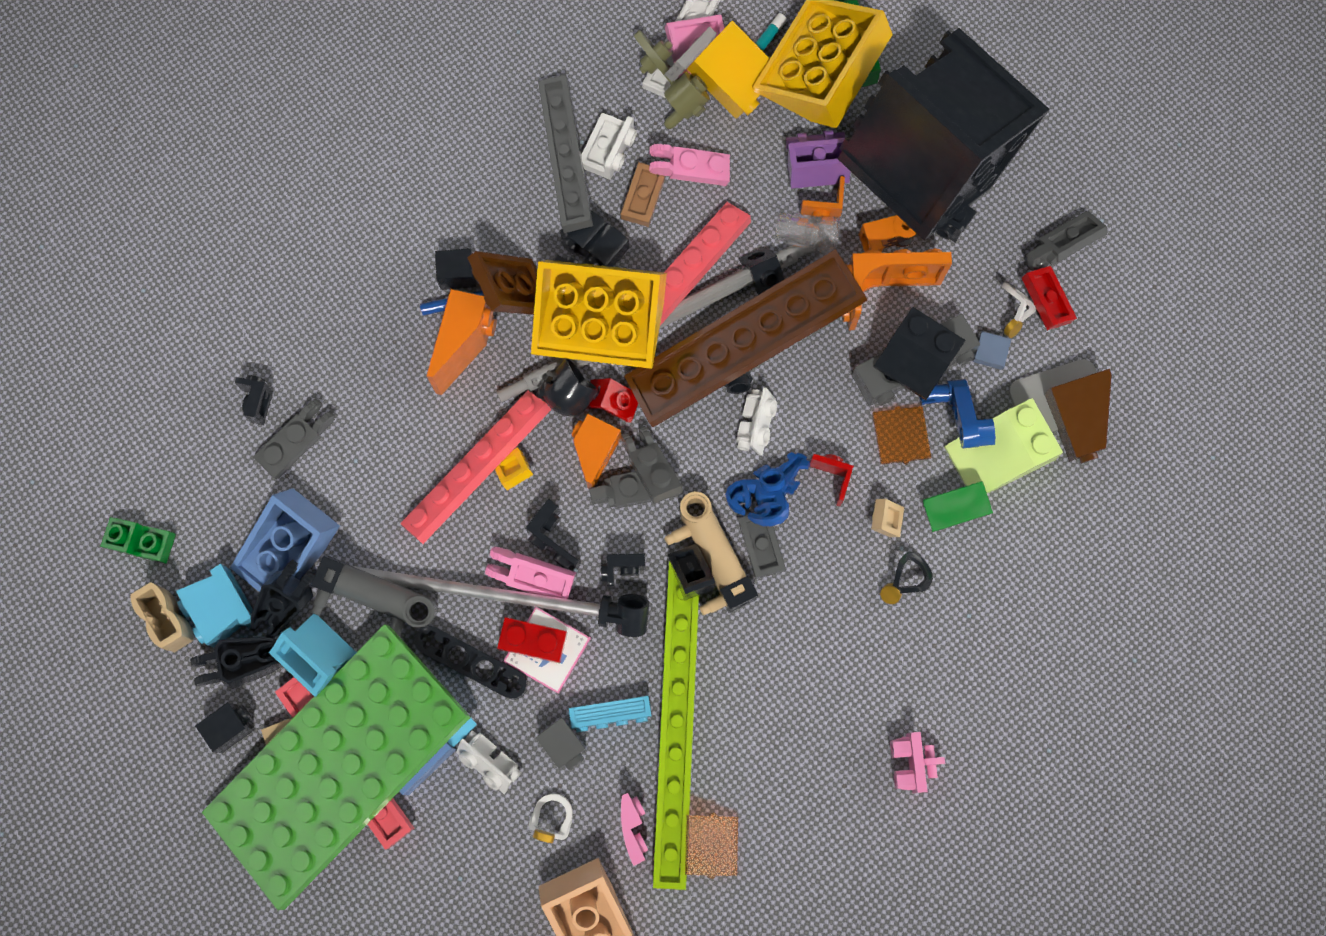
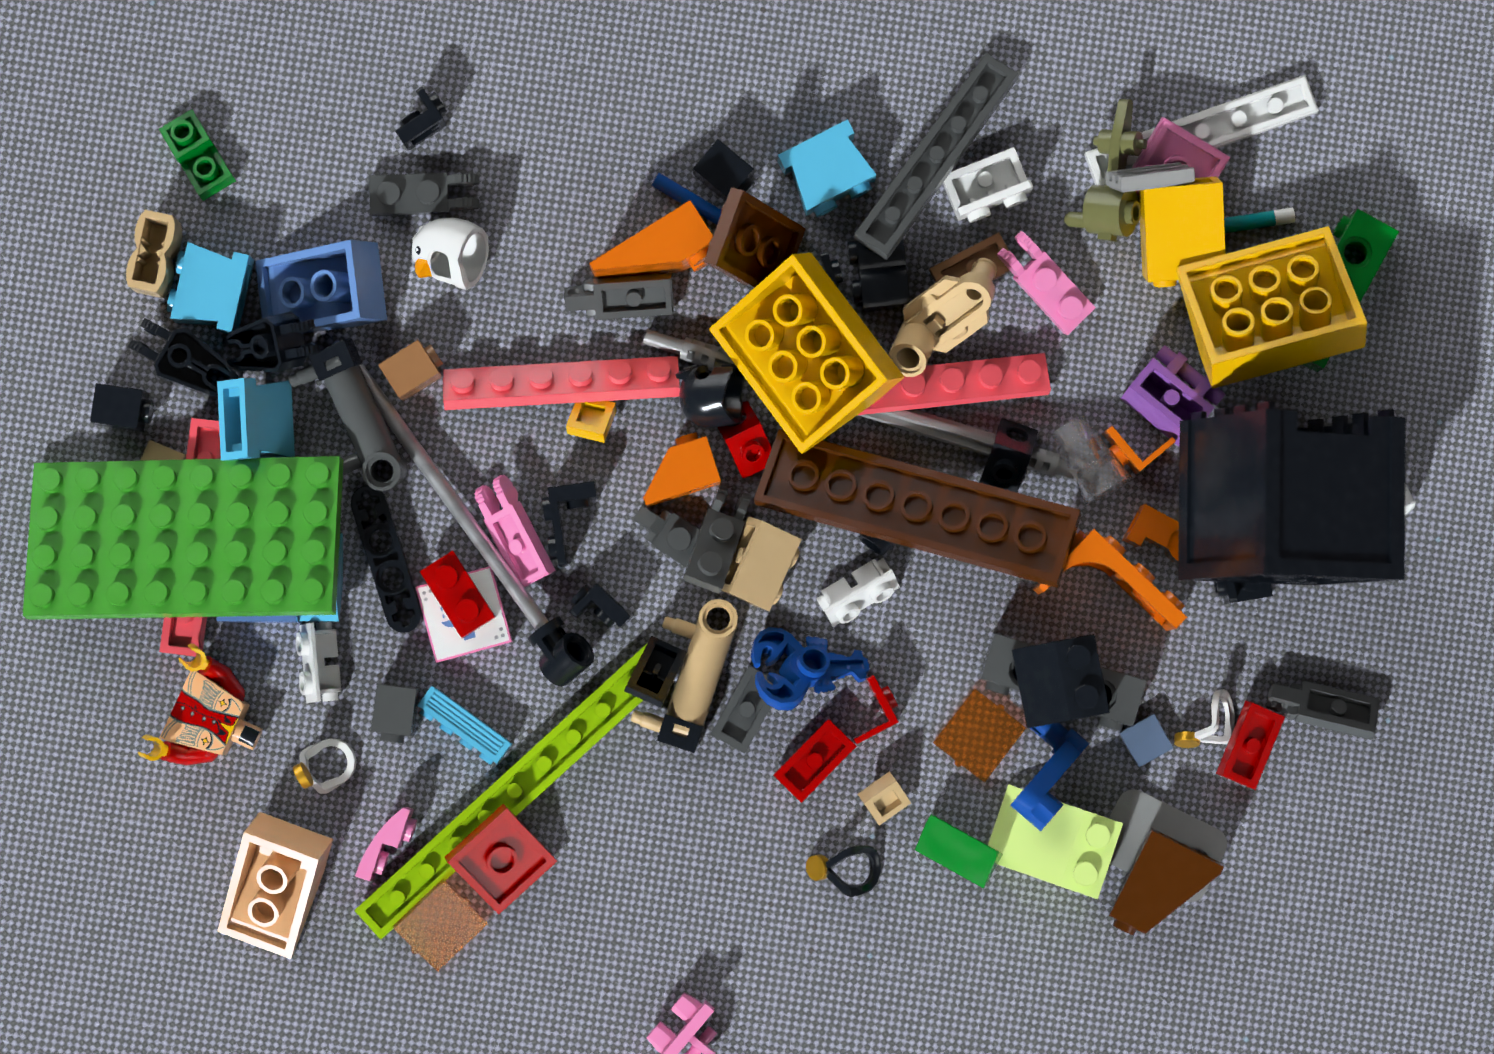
camera: 45 degrees right, 10 degrees up
(340, 451) = (451, 251): none -> white piece
(381, 540) = (412, 369): none -> medium nougat brick
(449, 861) = (205, 716): none -> torso
(465, 386) = (622, 296): none -> dark grey hinge
(512, 215) = (827, 169): none -> medium azure hips
(654, 225) = (943, 317): none -> tan piece
(688, 454) = (761, 563): none -> tan brick
(708, 769) = (500, 859): none -> red tile
(828, 535) = (814, 760): none -> red plate

